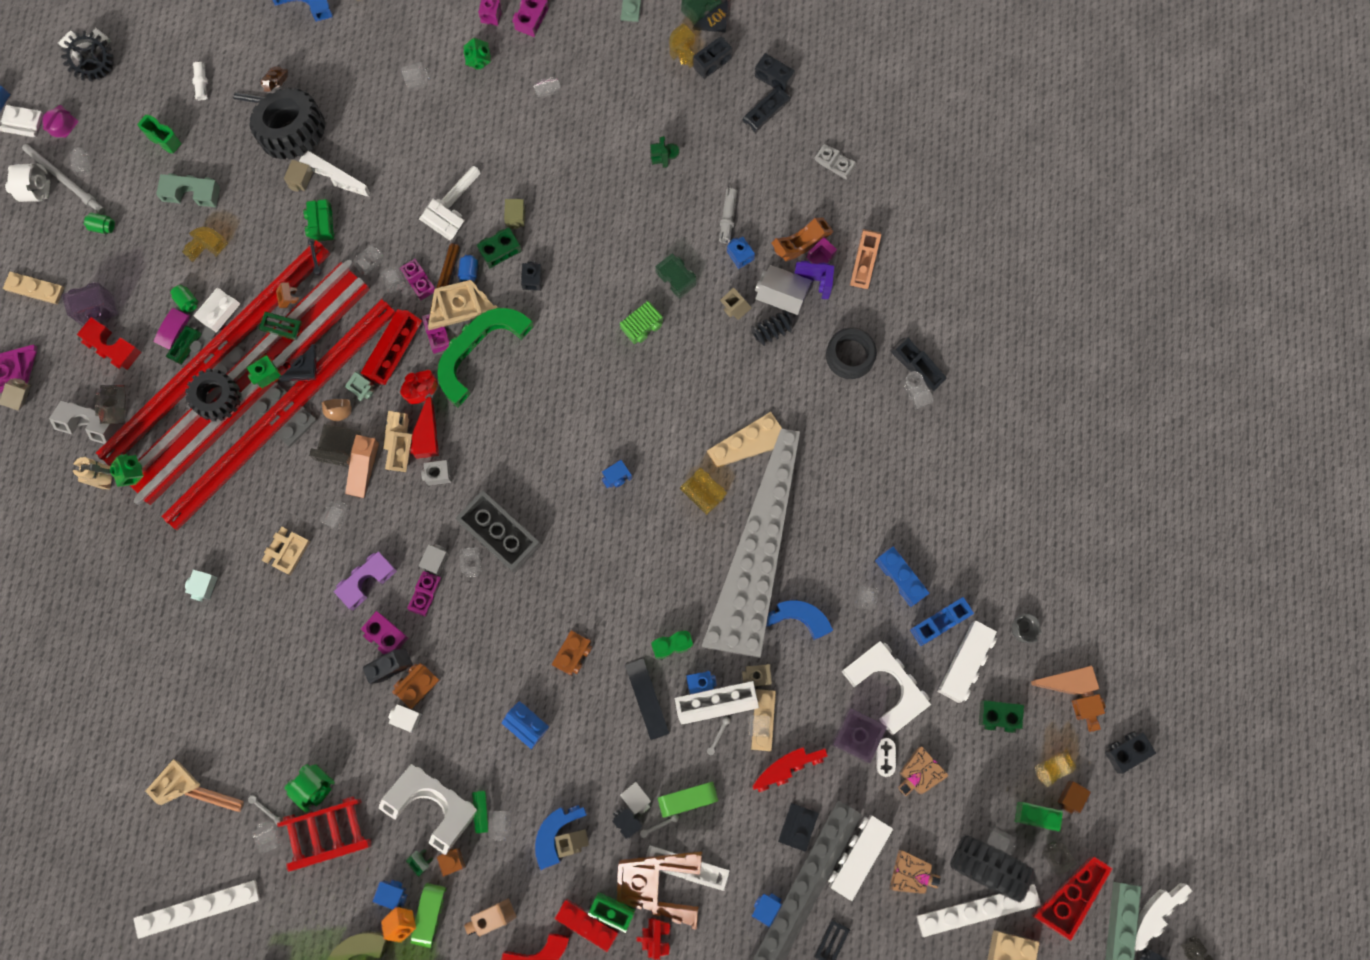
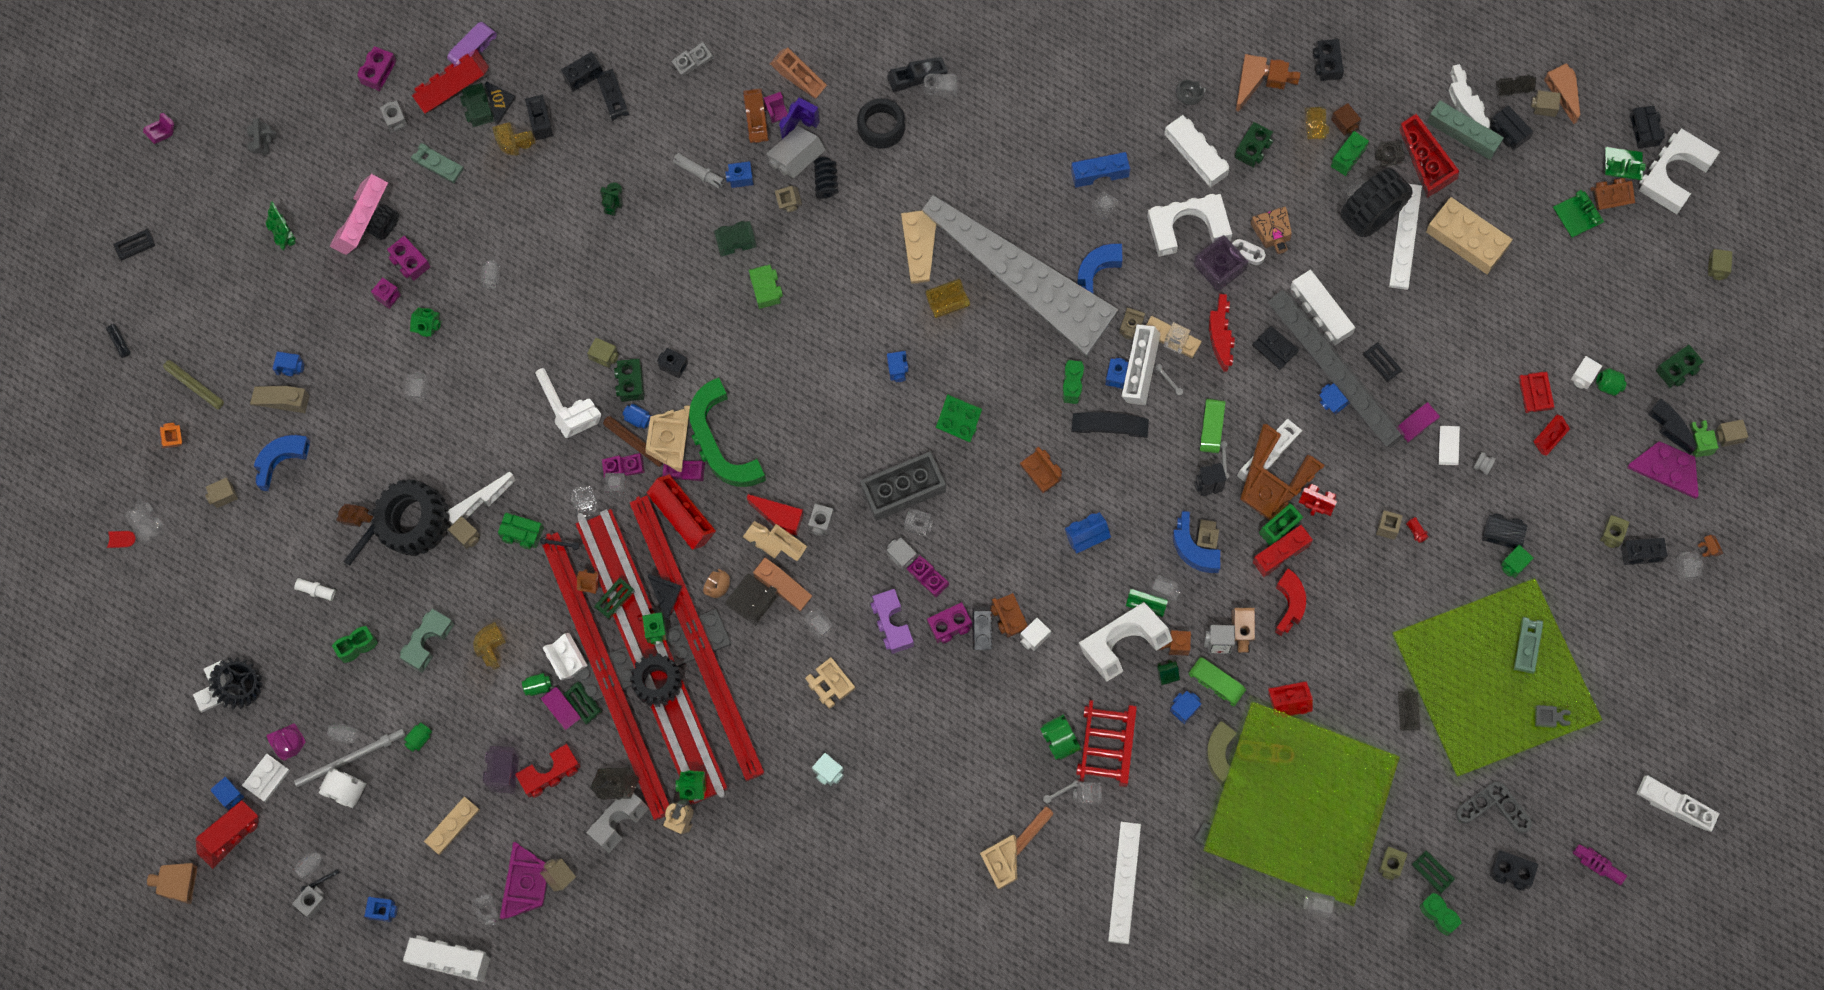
camera: 60 degrees left, 5 degrees down
(360, 386) = (705, 555): sand green bracket -> none
(398, 924) = (1215, 706): orange brick -> none
(418, 386) = (722, 502): red plate -> none
(467, 901) = (1219, 639): none -> light grey brick
(586, 554) = (959, 418): none -> green hinge
(636, 799) = (1191, 466): white brick -> none
(912, 874) = (1353, 272): medium nougat torso -> none
(941, 621) = (1153, 156): blue arch -> none

